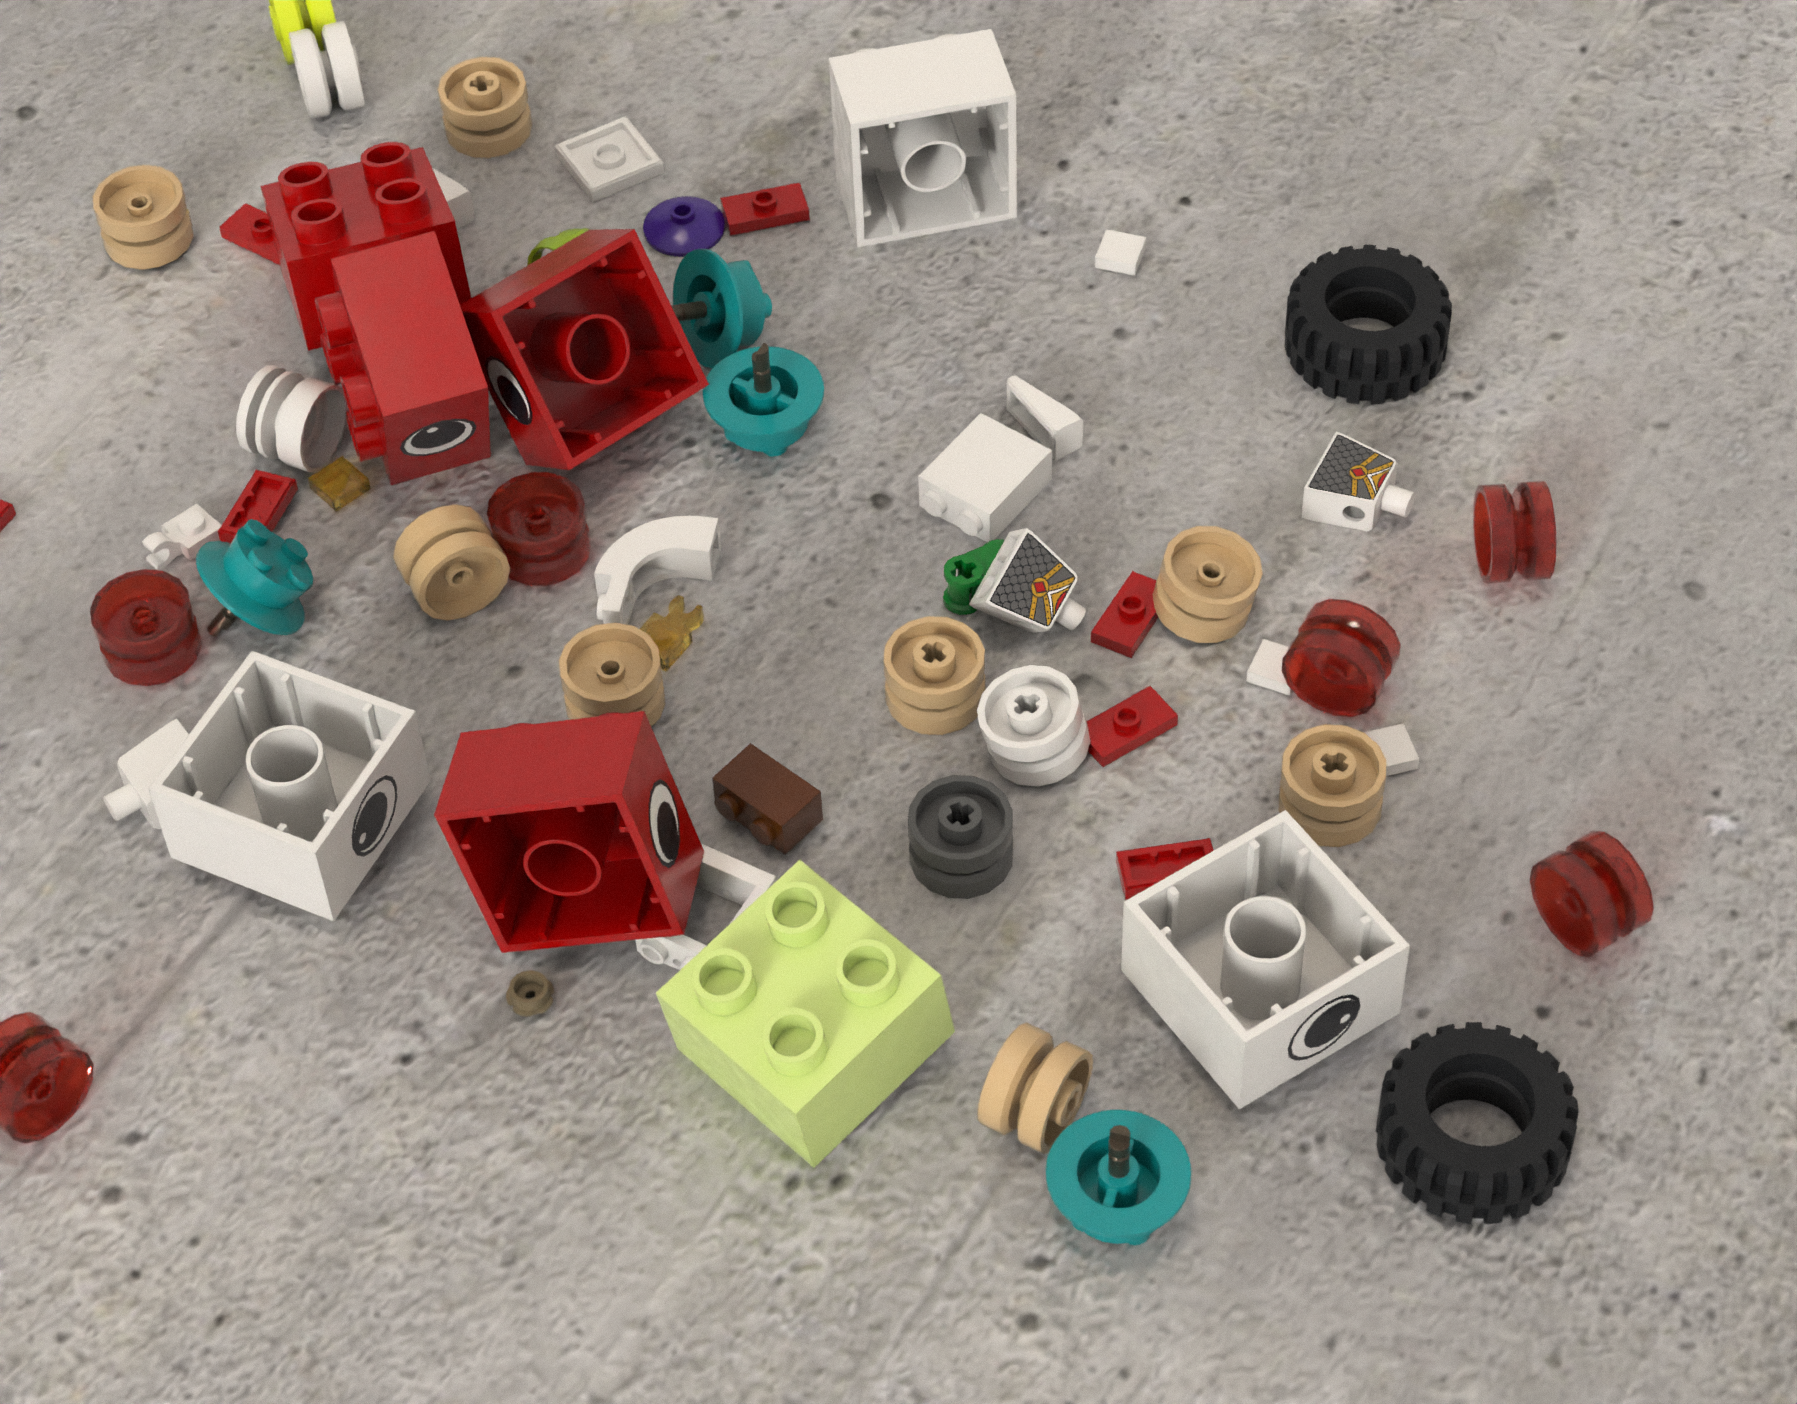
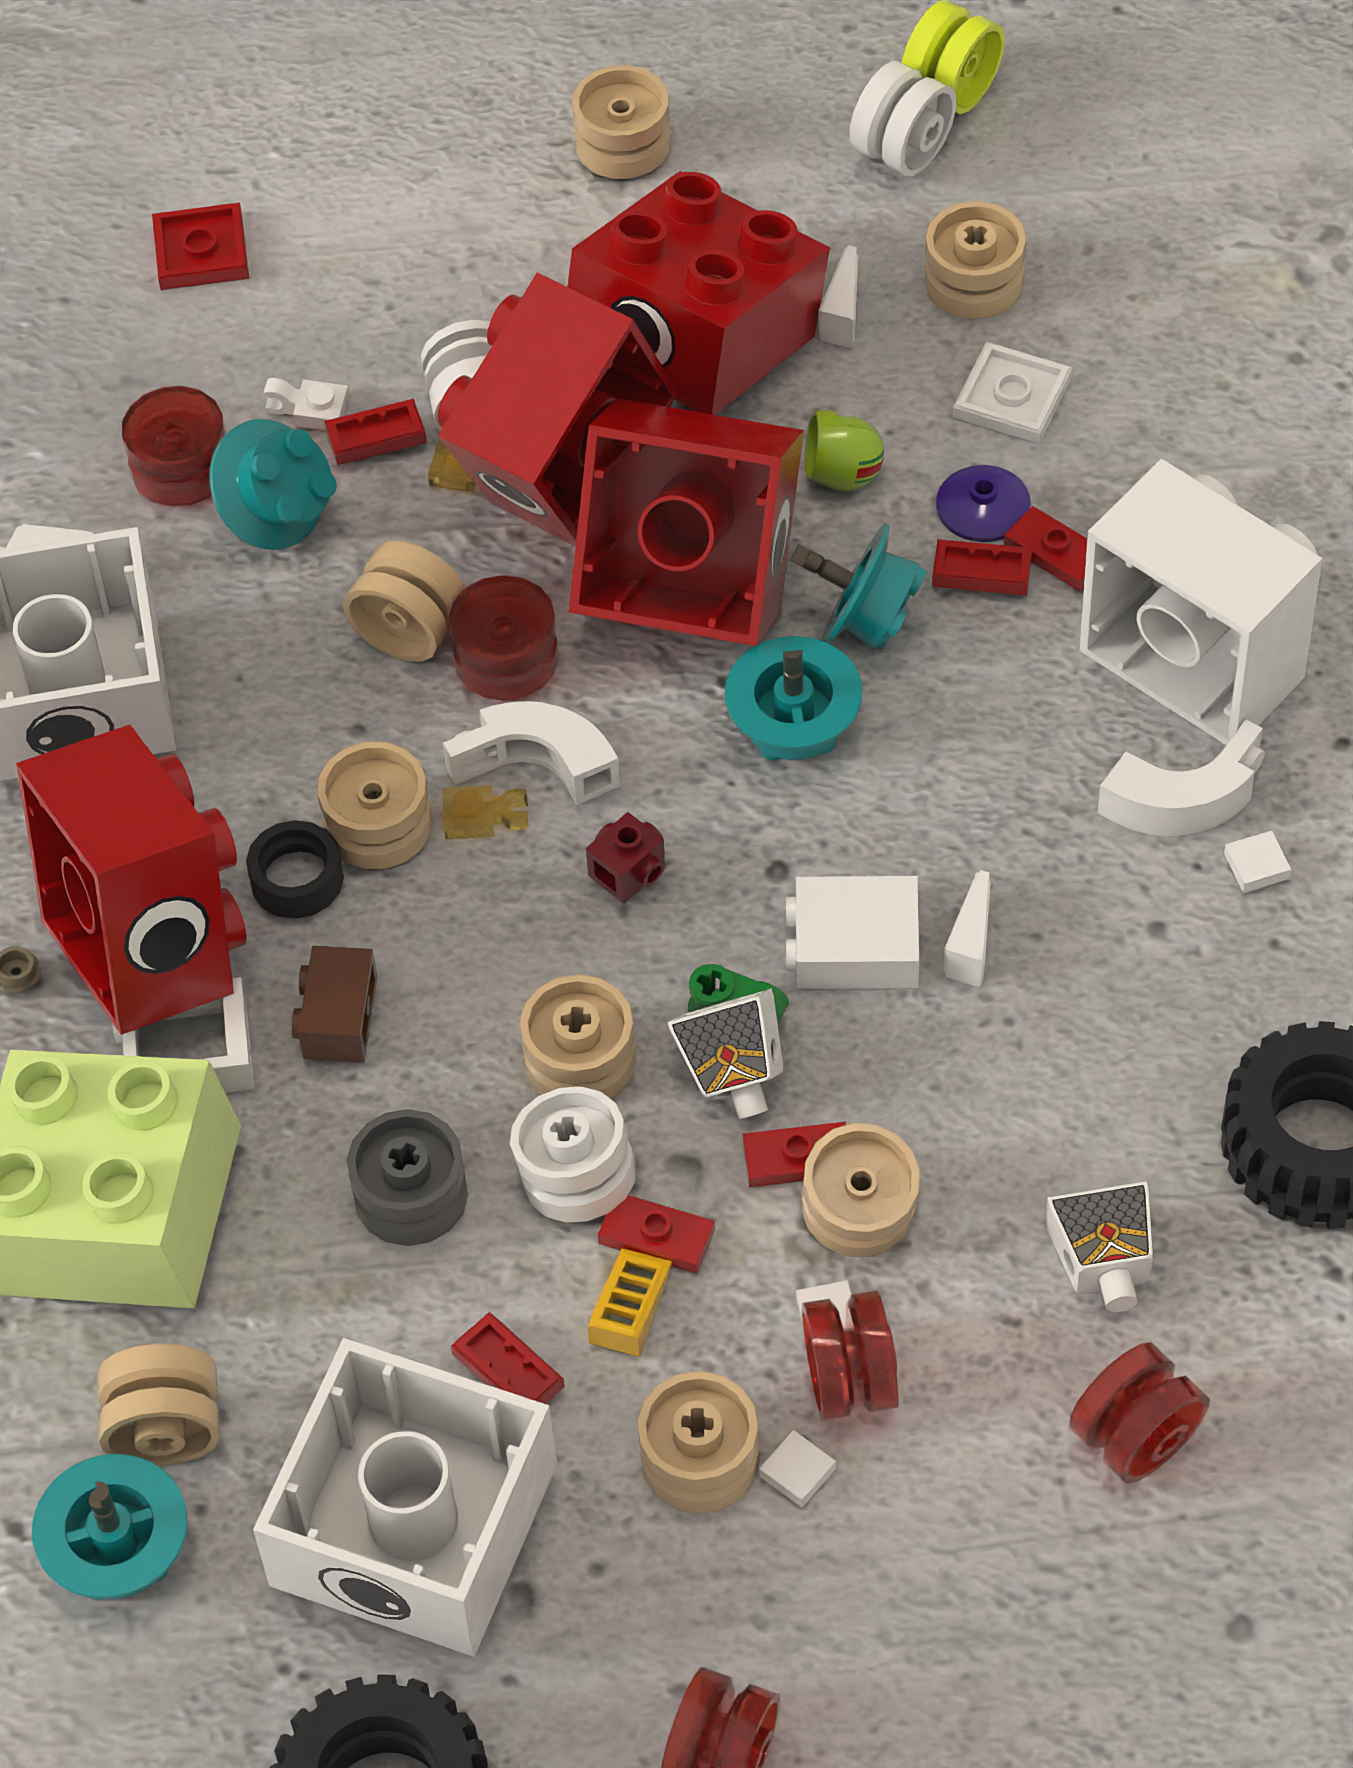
camera: 55 degrees right, 5 degrees up
(753, 242) = (982, 567): none -> red plate
(798, 556) = (626, 857): none -> dark red brick
(1038, 262) = (1183, 801): none -> white arch
(1182, 798) = (622, 1336): none -> yellow slope

